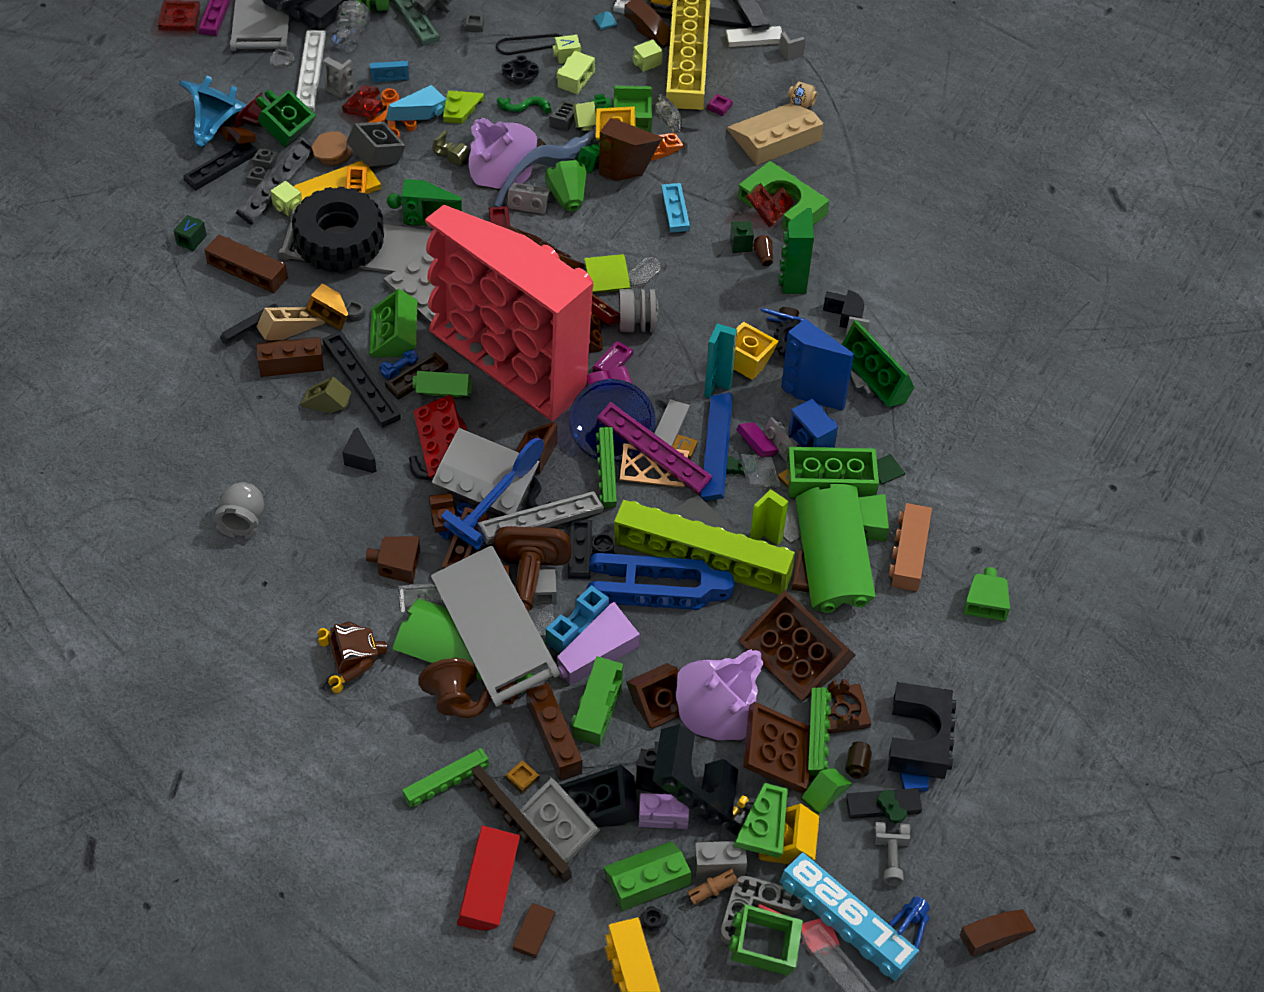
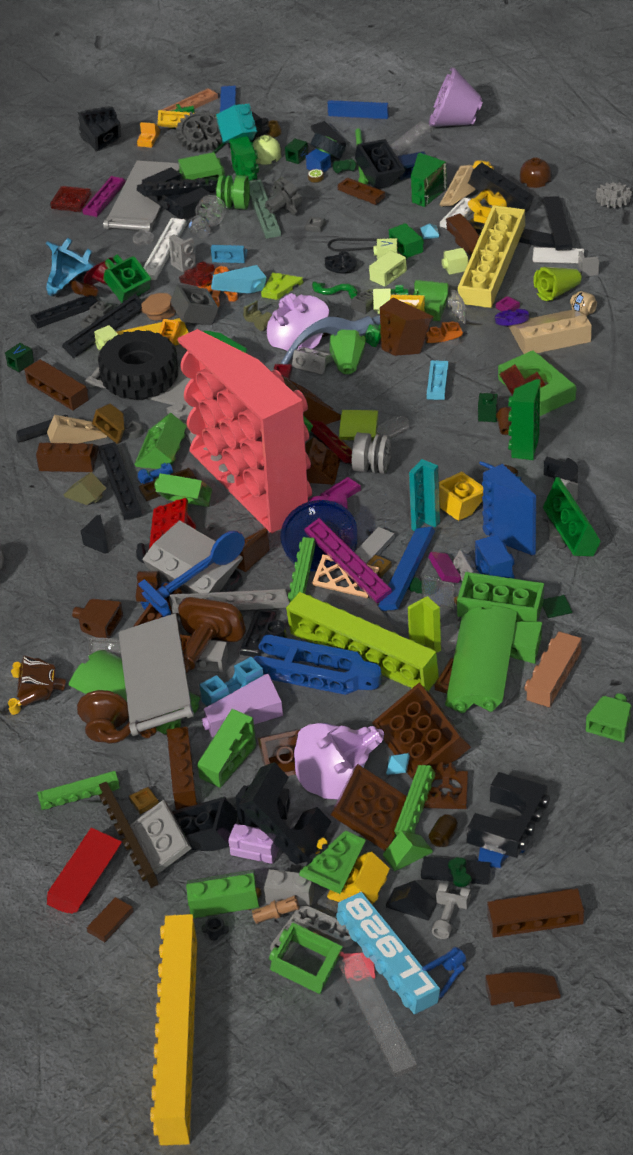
camera: 20 degrees right, 10 degrees down
(589, 35) = (408, 241): none -> green brick
(731, 121) = (511, 318): none -> dark purple tile
(764, 72) = (555, 281): none -> lime cone
(783, 687) = (397, 764): none -> medium azure slope
(850, 847) = (412, 900): none -> black slope
(983, 839) = (535, 912): none -> reddish brown brick

